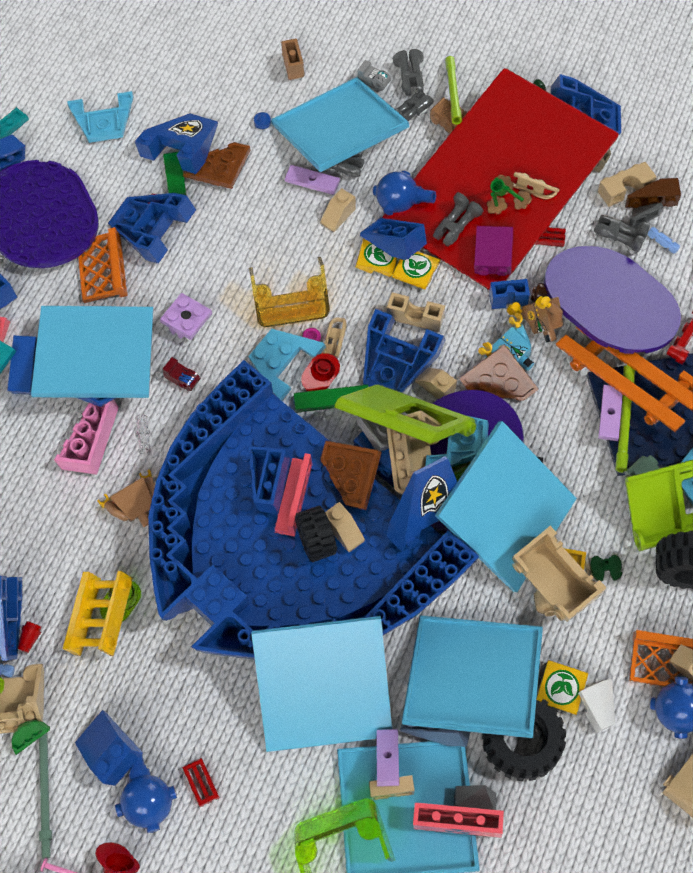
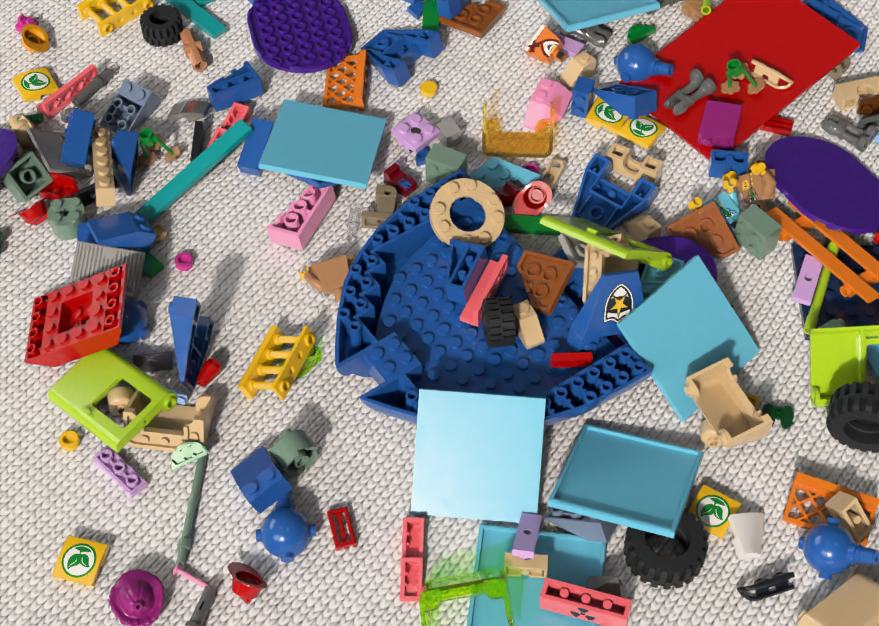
camera: 10 degrees right, 10 degrees down
(136, 711) = (294, 452): none -> sand green brick
(157, 166) = (416, 9): none -> blue tile
(173, 415) = (386, 206): none -> dark tan piece
(188, 259) = (428, 88): none -> yellow tile
(199, 341) = (420, 156): none -> blue tile
(221, 309) = (450, 133): none -> light grey brick
(224, 351) = (443, 162): none -> sand green brick
(268, 386) = (470, 188): none -> tan plate
(278, 802) = (412, 559): none -> coral slope
(289, 373) = (507, 193): none -> dark red leg
(300, 189) = (545, 46): none -> torso
(314, 243) = (539, 104): none -> bright pink wedge
(349, 243) = (582, 97): none -> blue brick
(392, 153) = (638, 33): none -> green plate
(395, 559) = (564, 360): none -> red tile
(551, 367) = (757, 232): none -> sand green brick
(622, 757) = (761, 586): none -> black piece

